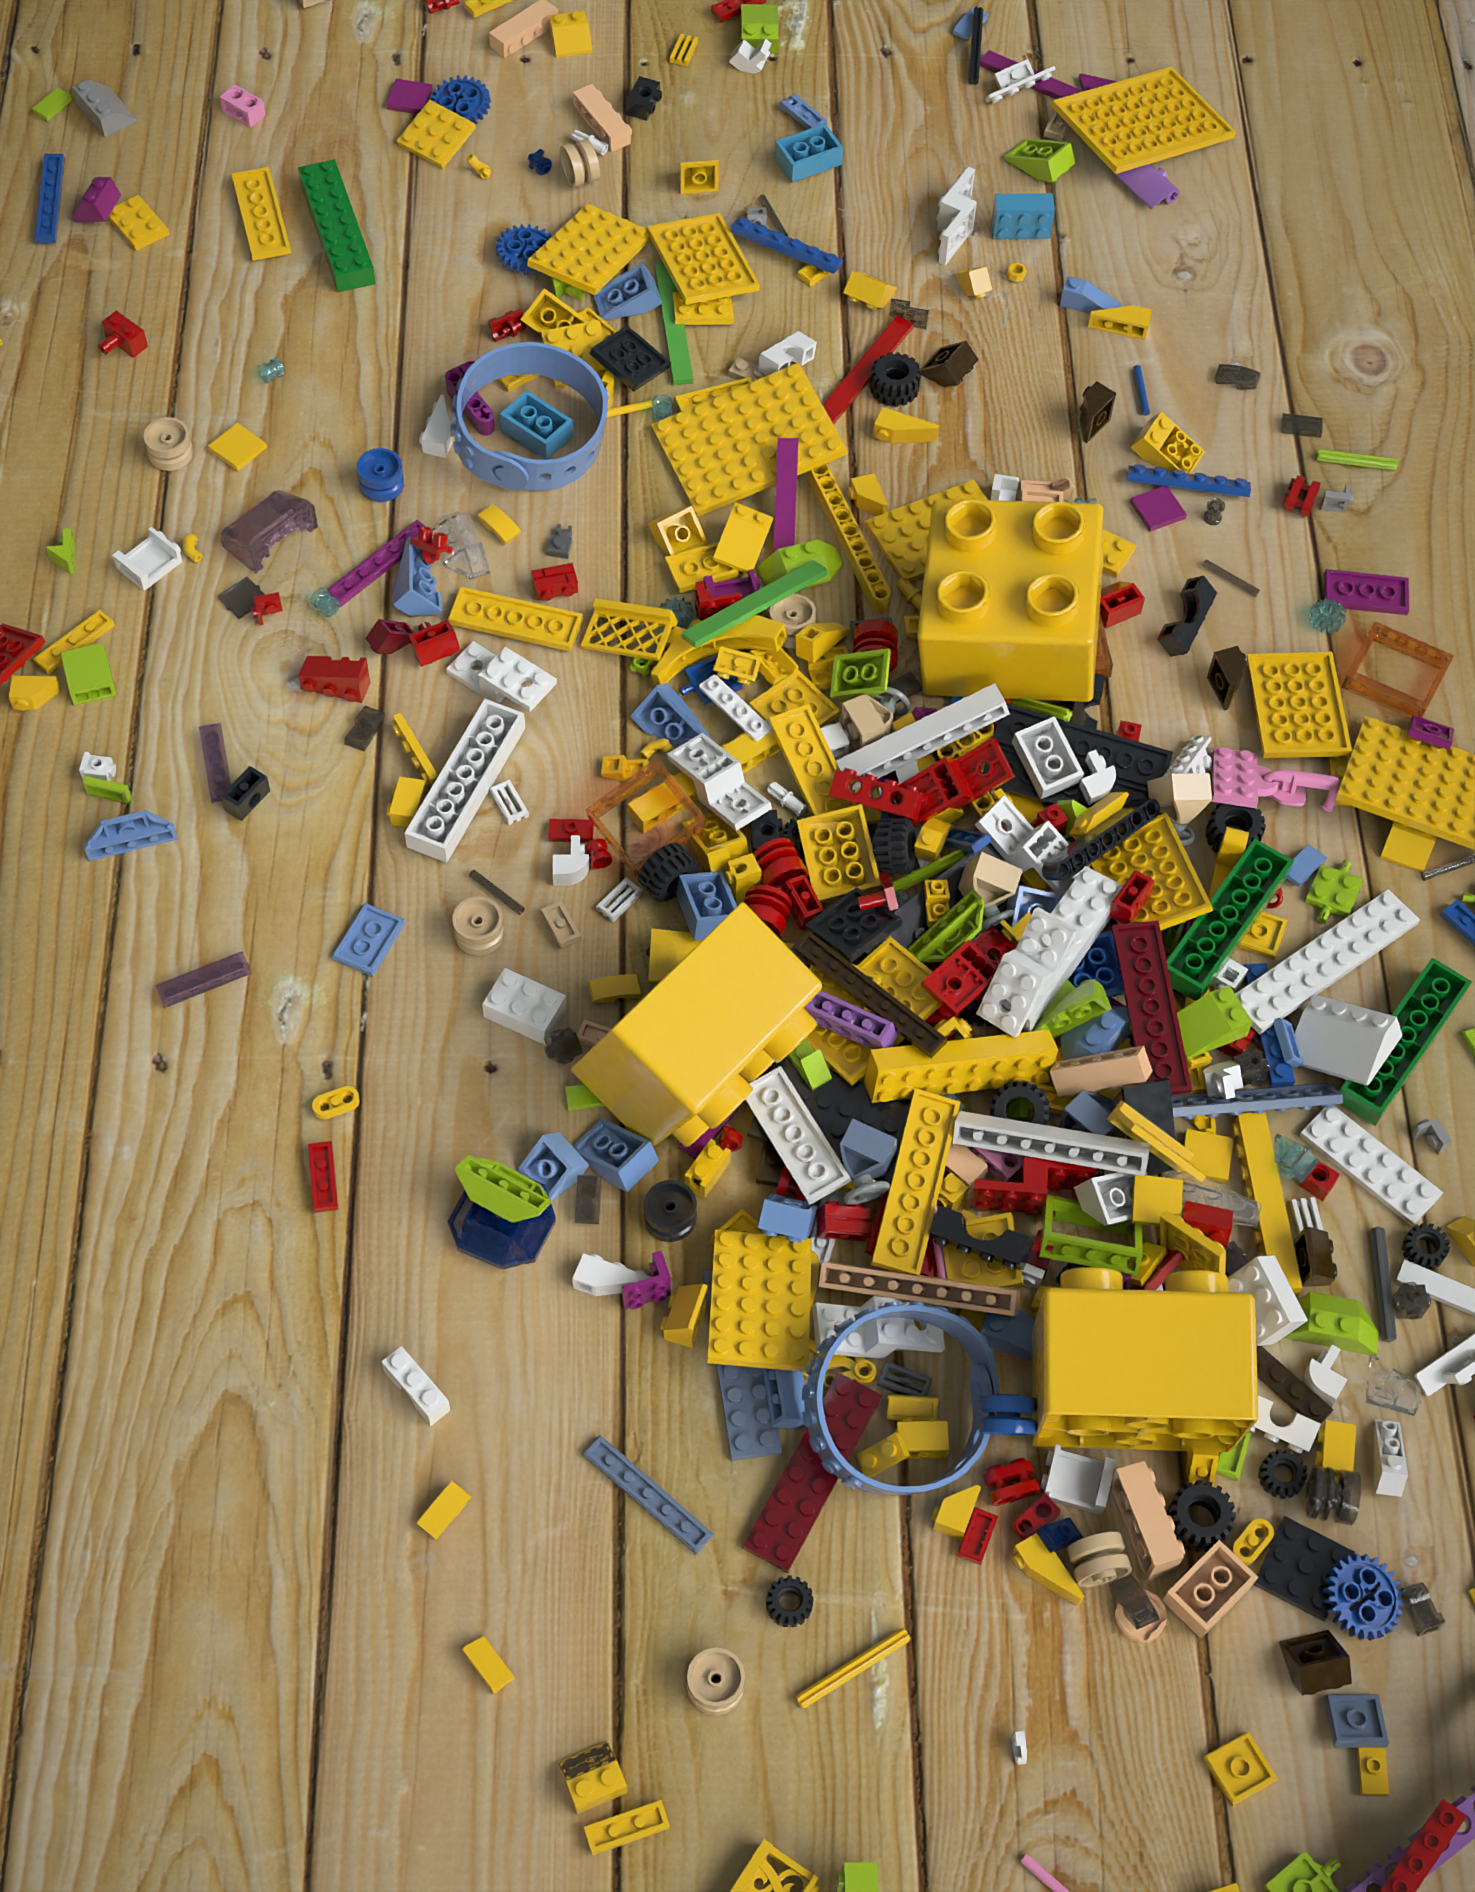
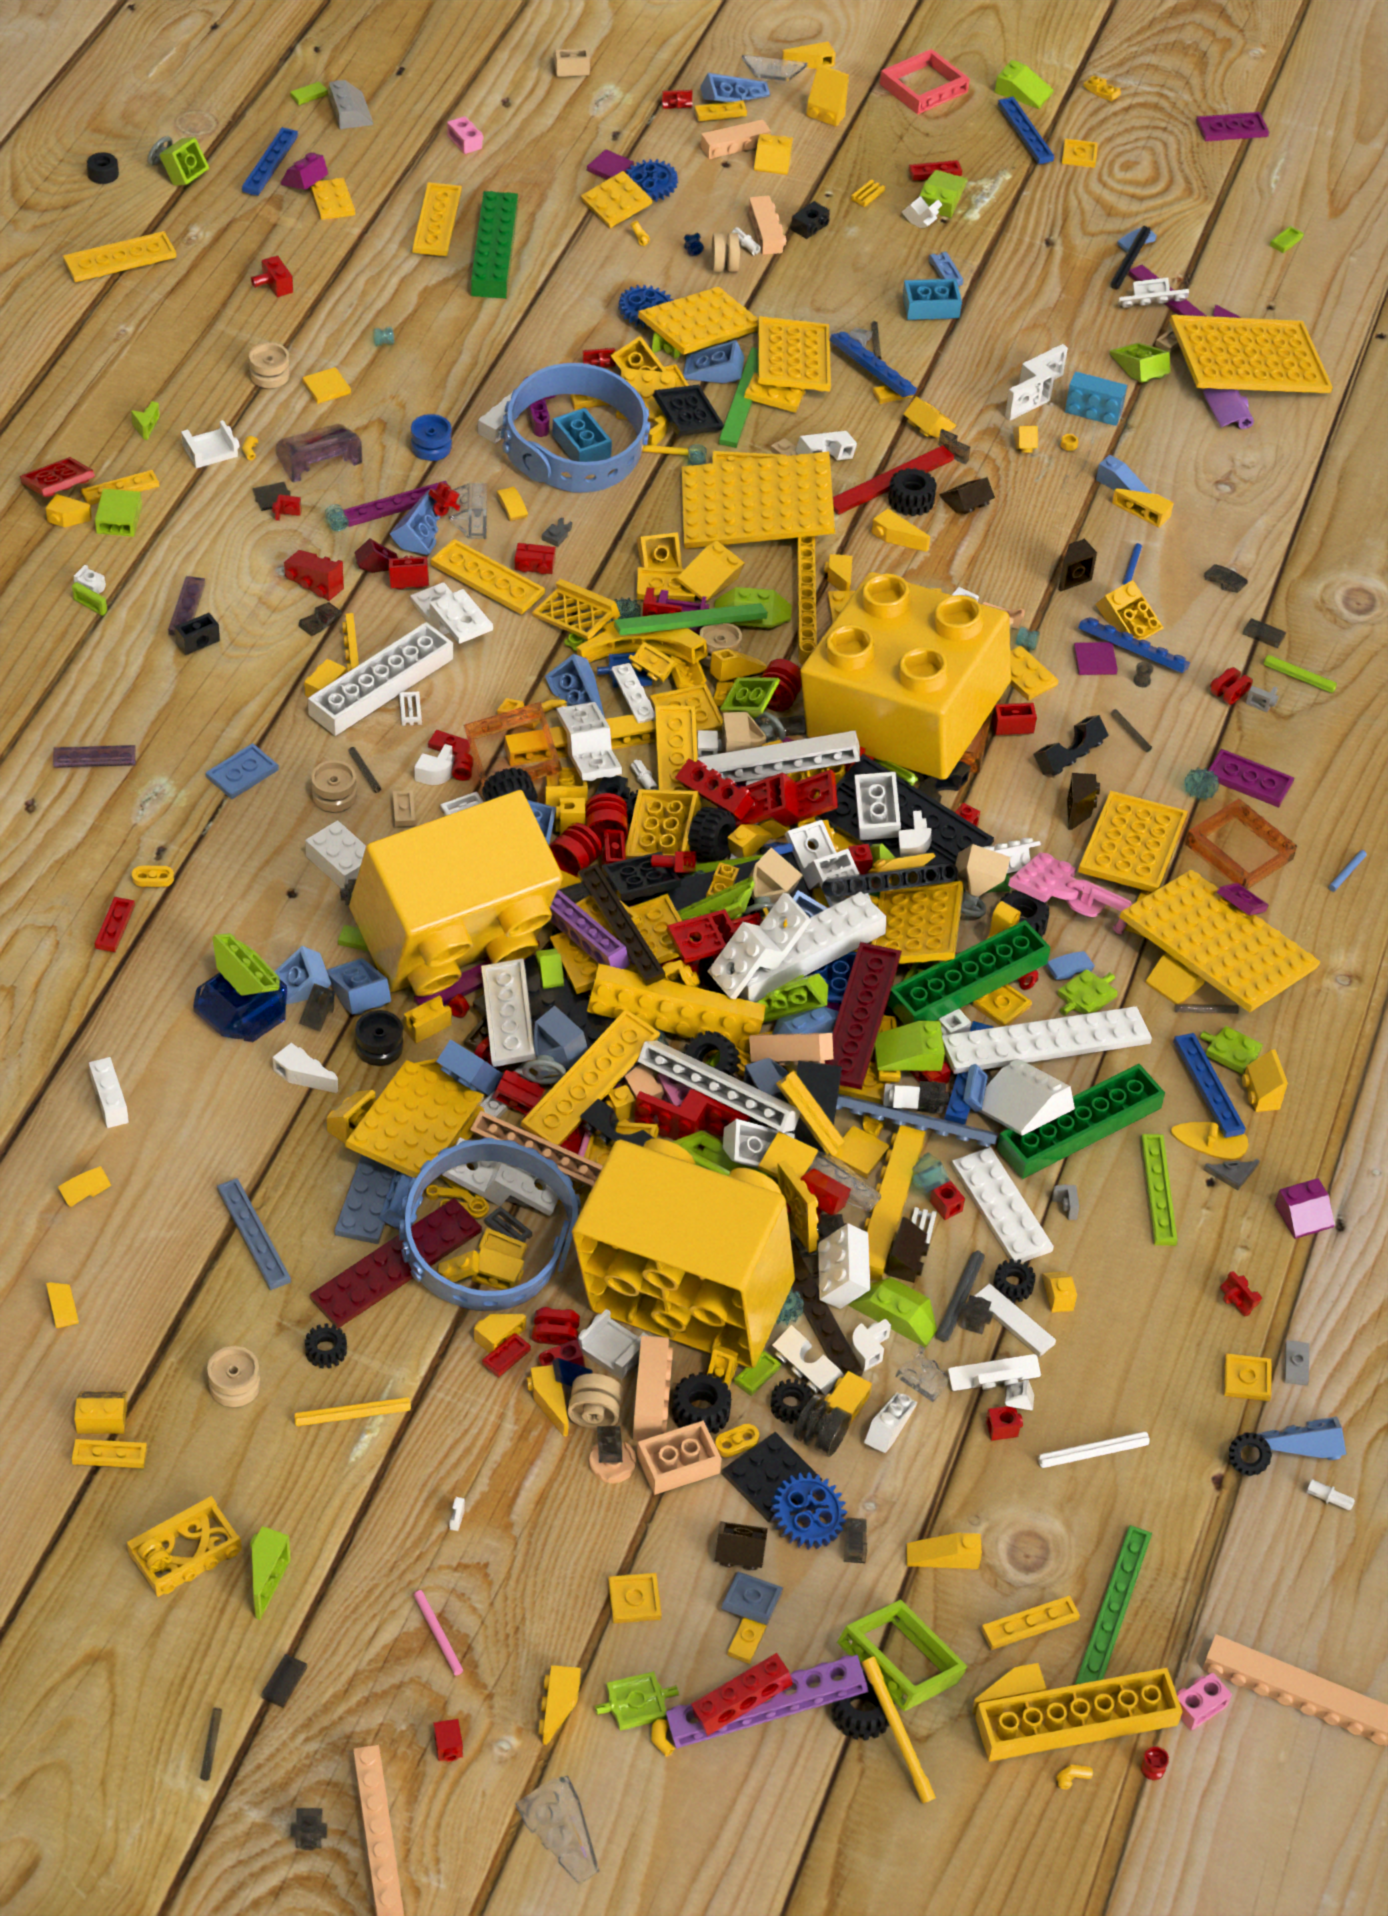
camera: 20 degrees right, 10 degrees down
(128, 834) = (88, 633): medium blue wedge -> none
(651, 1289) = (330, 1084): magenta bracket -> none
(698, 176) = (825, 291): yellow slope -> none
(785, 493) = (766, 545): magenta tile -> none
(1008, 1411) = (559, 1255): blue wheel -> none
(1131, 898) = (888, 927): red brick -> none

